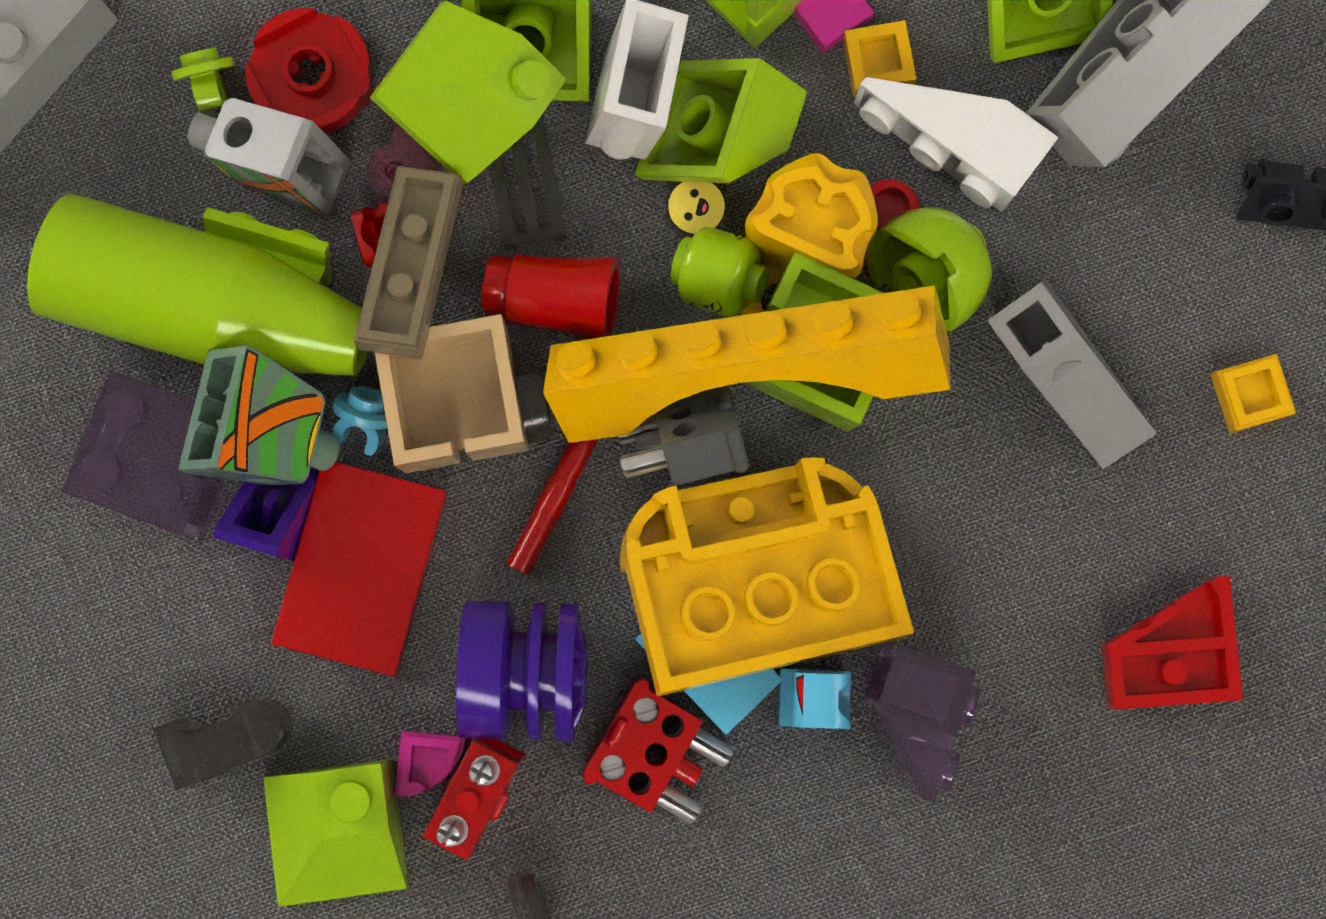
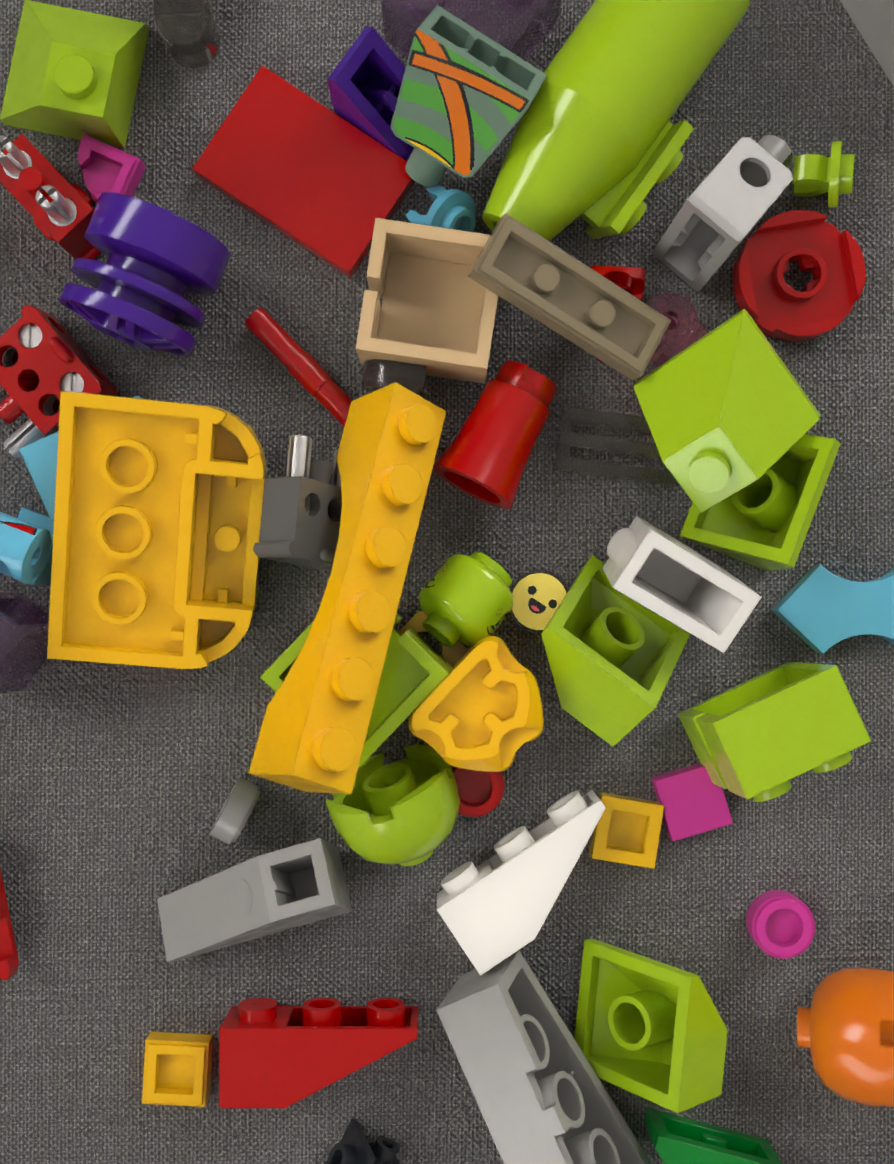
camera: 105 degrees right, 5 degrees up
(993, 419) = (235, 811): none -> light grey tile
(1194, 286) = (289, 1052): none -> red slope

